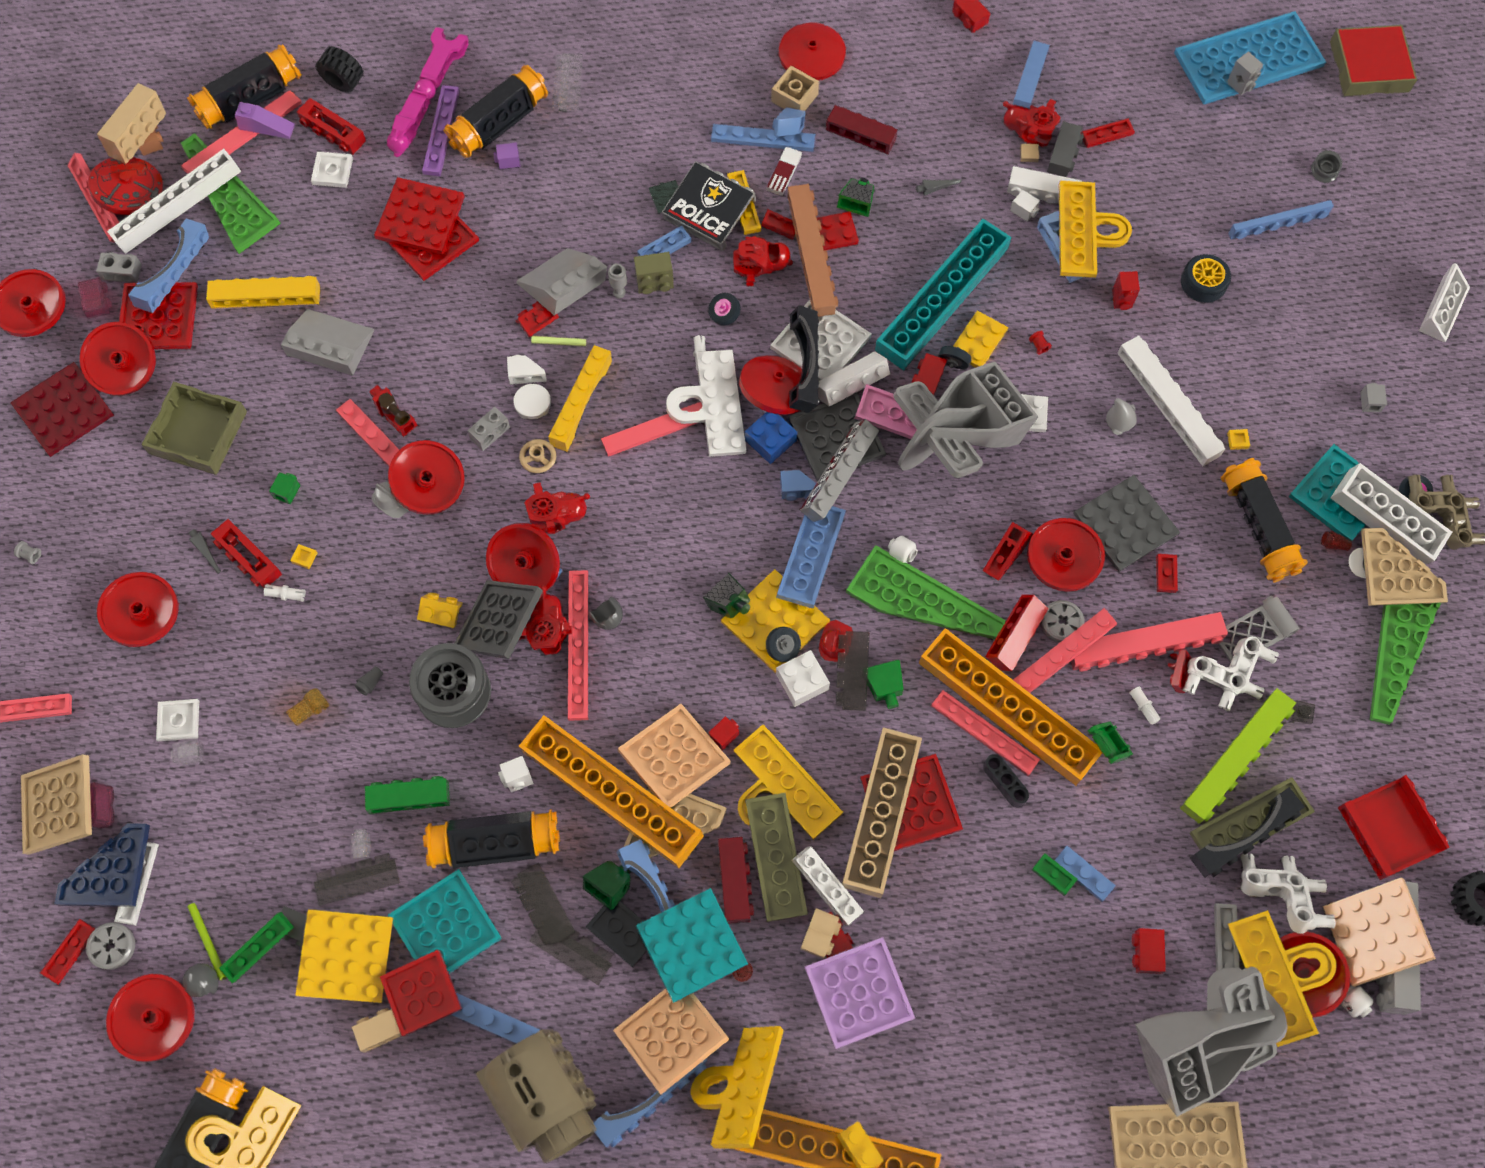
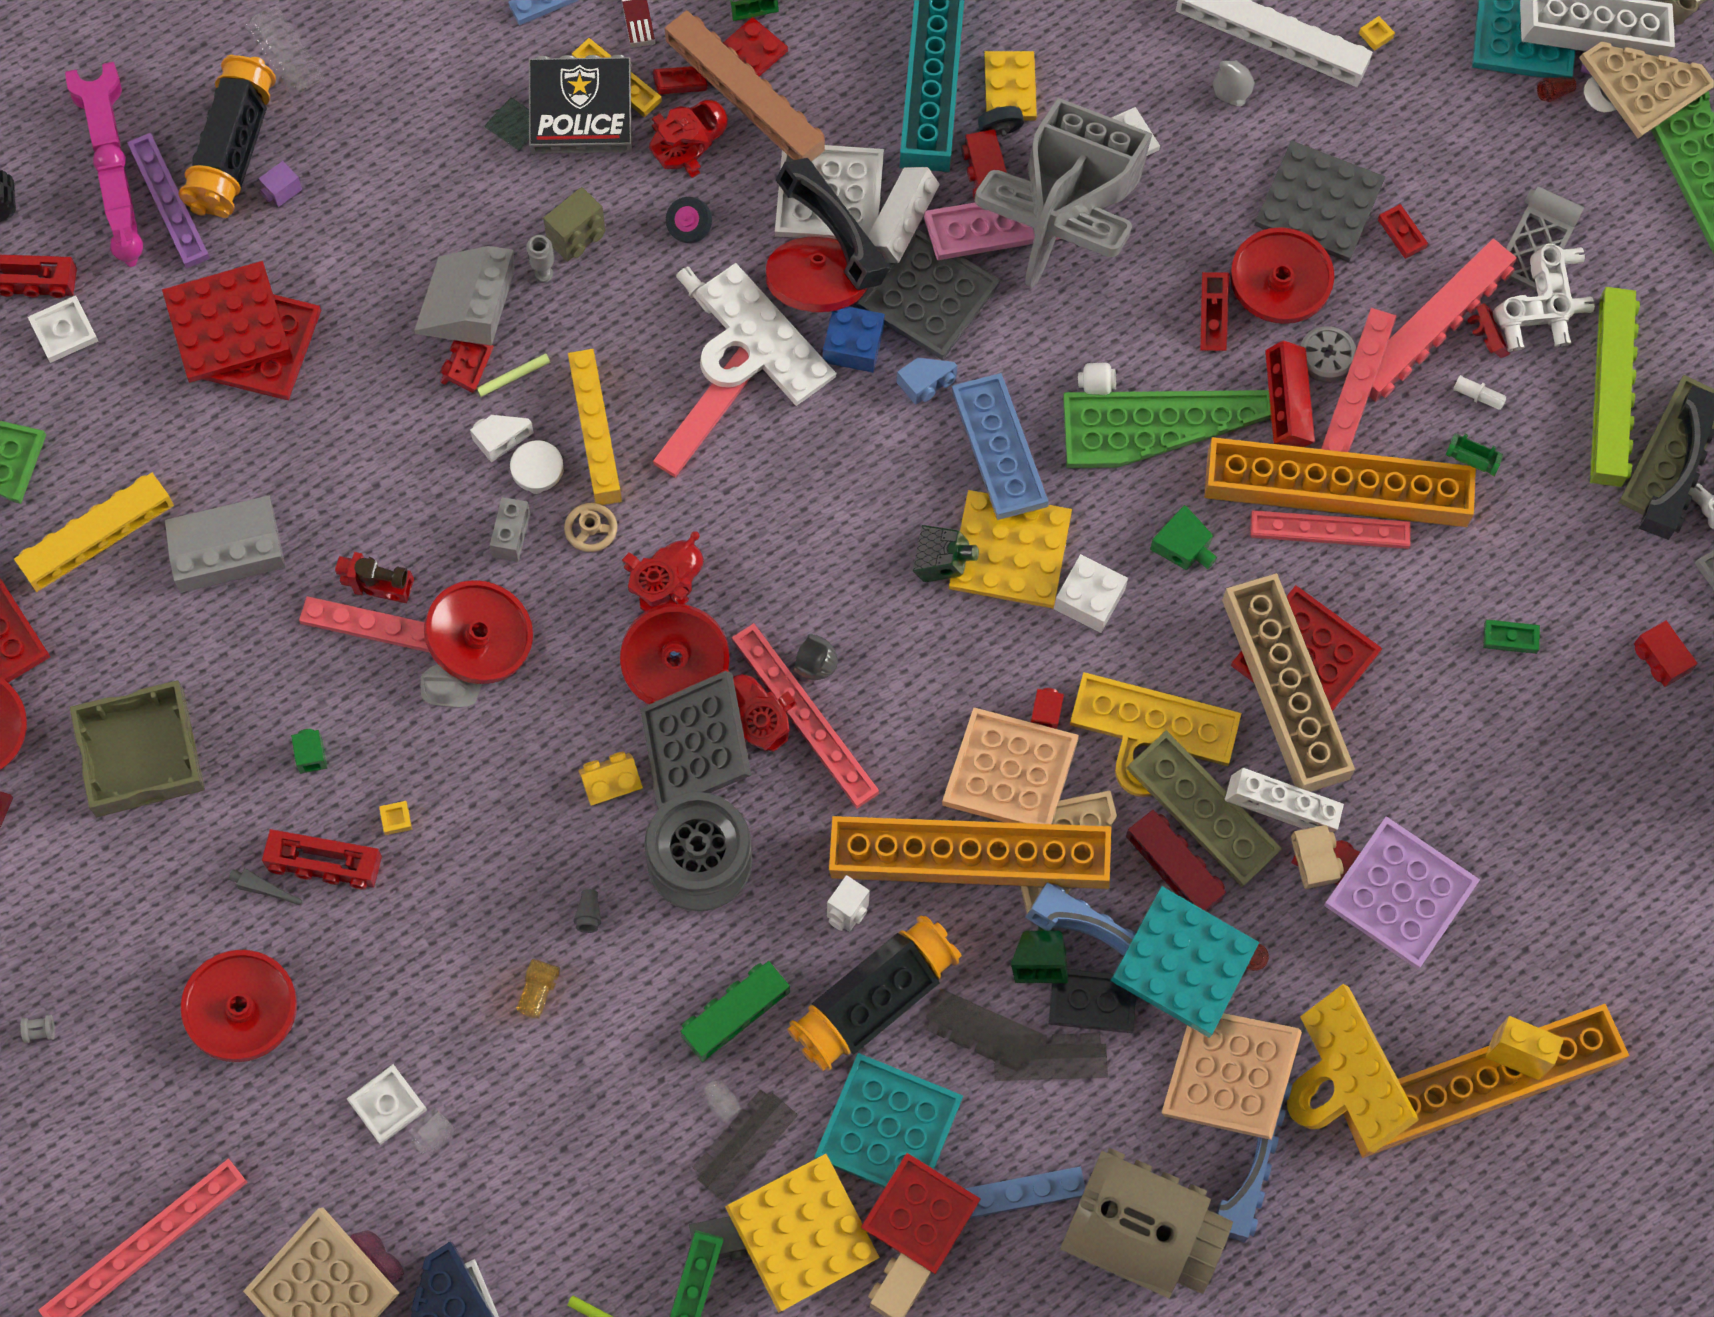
camera: 35 degrees left, 0 degrees up
(284, 592) = (404, 874): white pin -> none
(668, 243) = (559, 183): medium blue plate -> none
(783, 644) = (1044, 567): black wheel -> none
(829, 640) = (1094, 530): red piece -> none
(839, 470) = (967, 330): light grey brick -> none
(855, 672) = (1148, 552): clear smoke windscreen -> none
(1005, 771) = (1404, 567): black beam -> none
(1040, 342) = (1082, 48): red bush -> none
(1085, 873) = (1548, 615): medium blue plate -> none
(1263, 515) = (1468, 106): brick -> none
(1303, 712) = (1649, 297): clear smoke plate -> none

